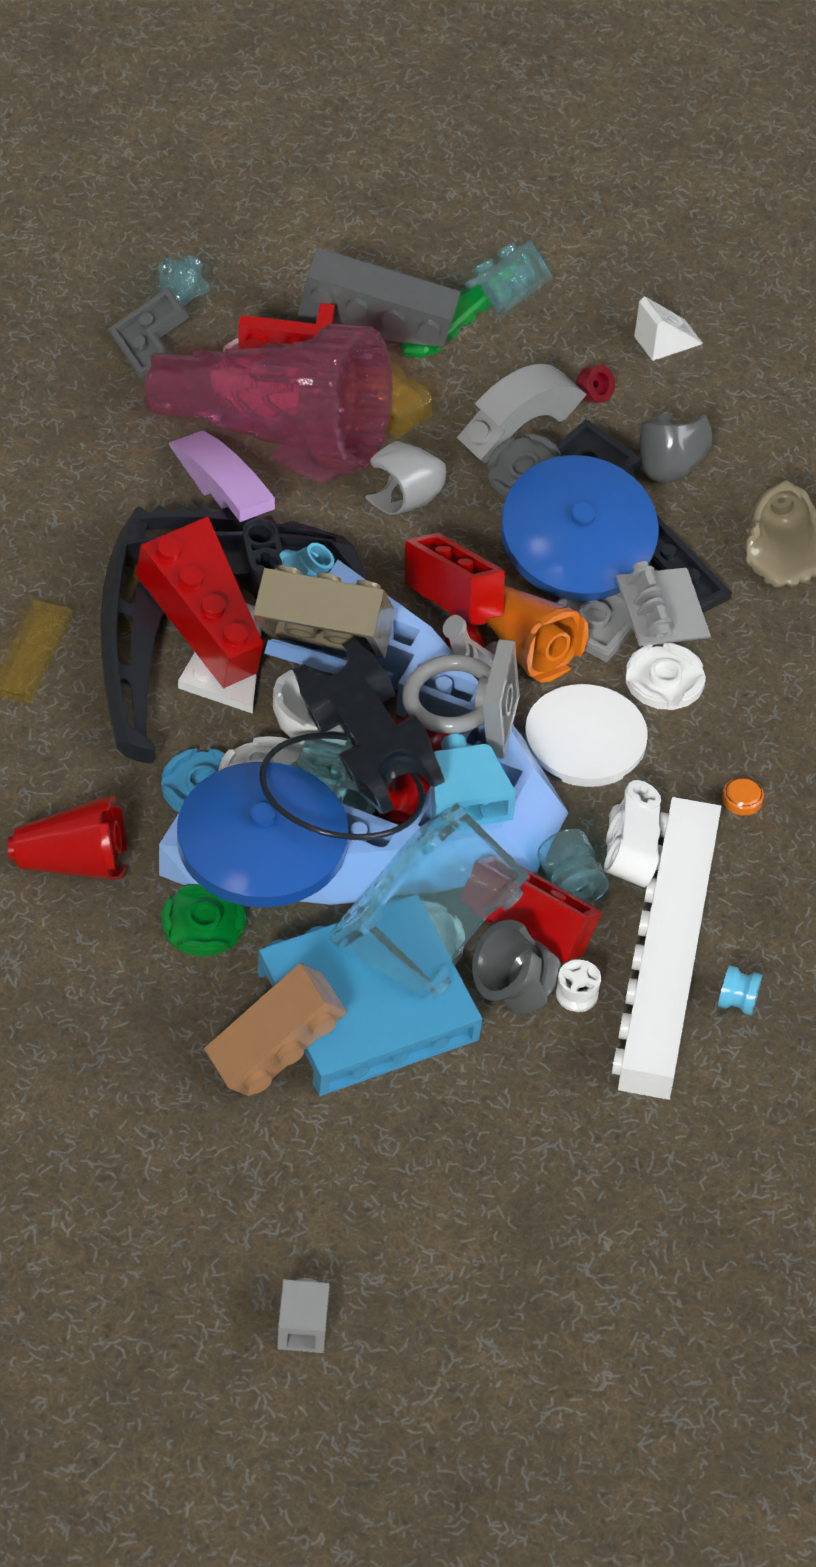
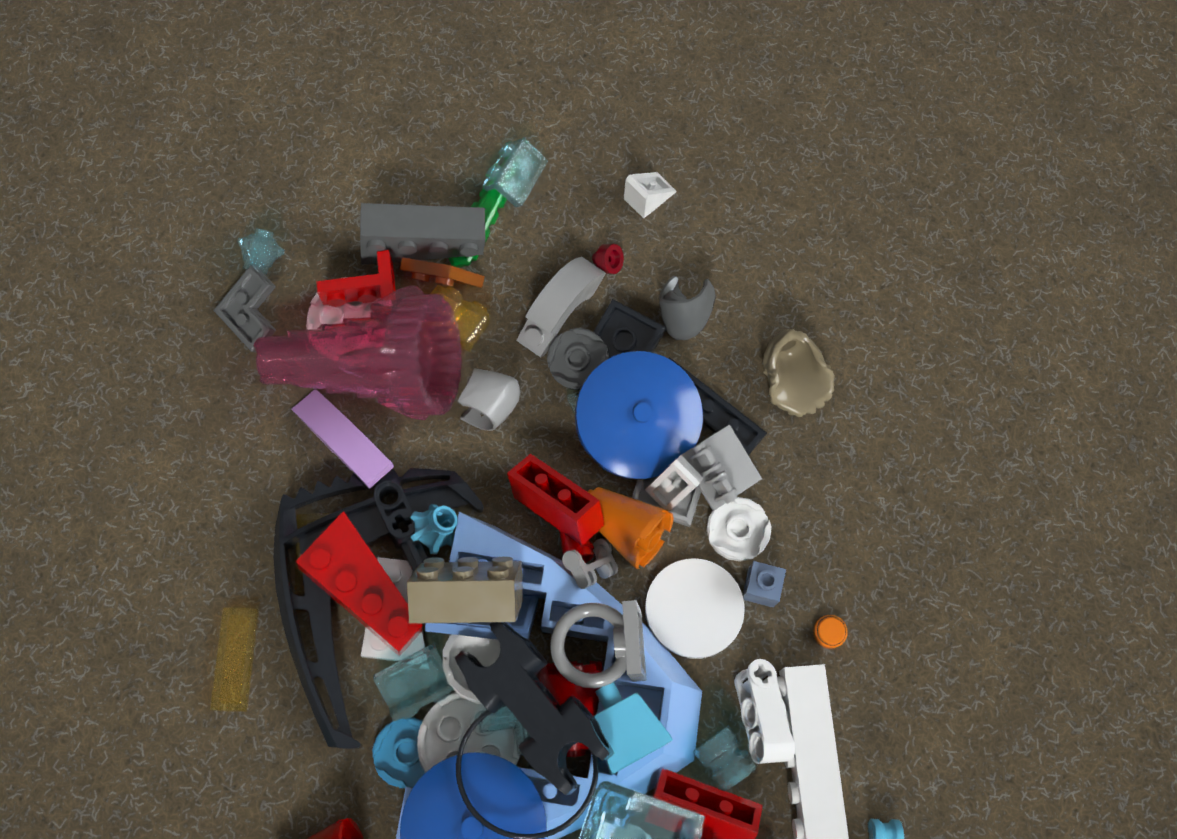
camera: 15 degrees left, 20 degrees up
(232, 714) = (413, 683): none -> clear light blue bracket
(404, 352) = (443, 273): none -> dark orange wing
(601, 594) = (674, 483): none -> white slope
(675, 724) = (763, 584): none -> sand blue brick

